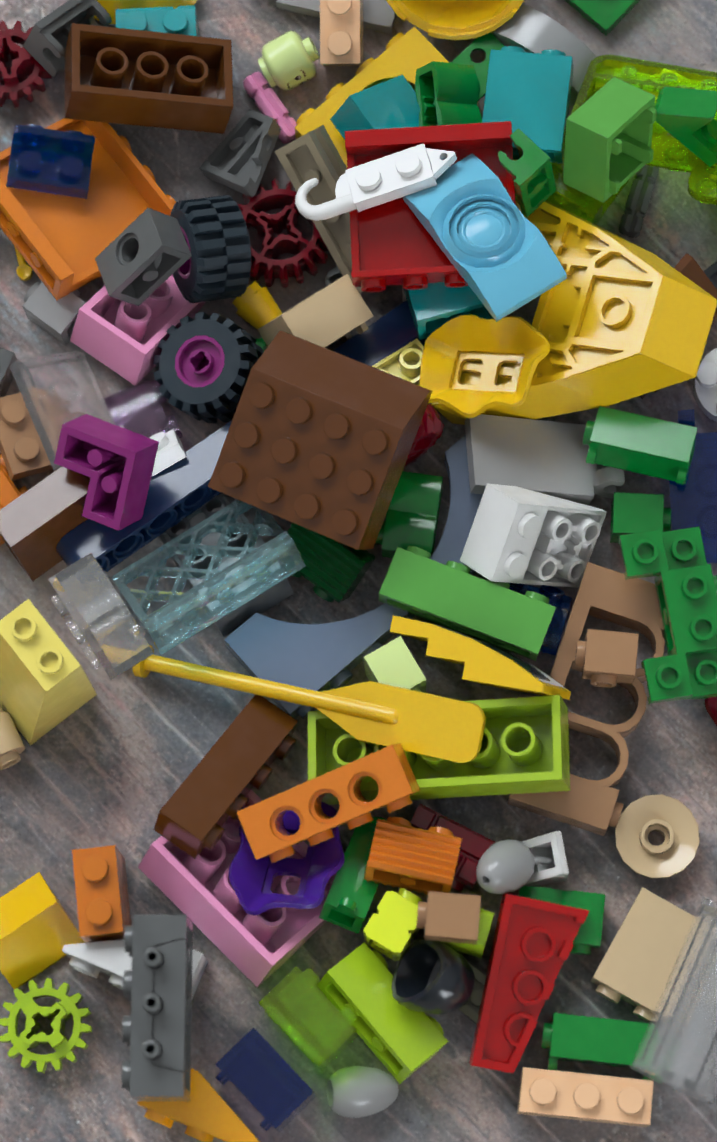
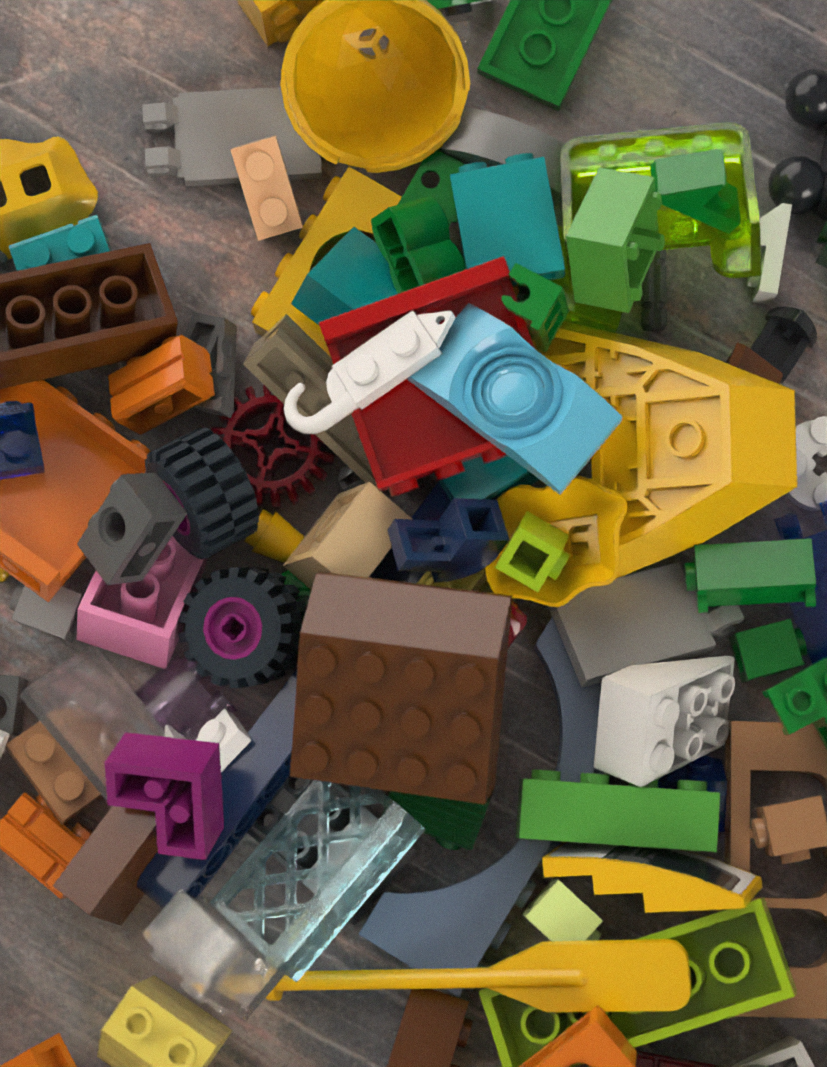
camera: 20 degrees left, 5 degrees up
(204, 155) = (161, 384): none -> orange brick
(270, 105) = (215, 300): bright pink axle -> none
(288, 60) = (220, 244): yellowish green head -> none
(399, 346) = (454, 546): none -> dark blue brick
(412, 514) = (525, 727): green brick -> none
(462, 365) = (534, 552): none -> lime brick

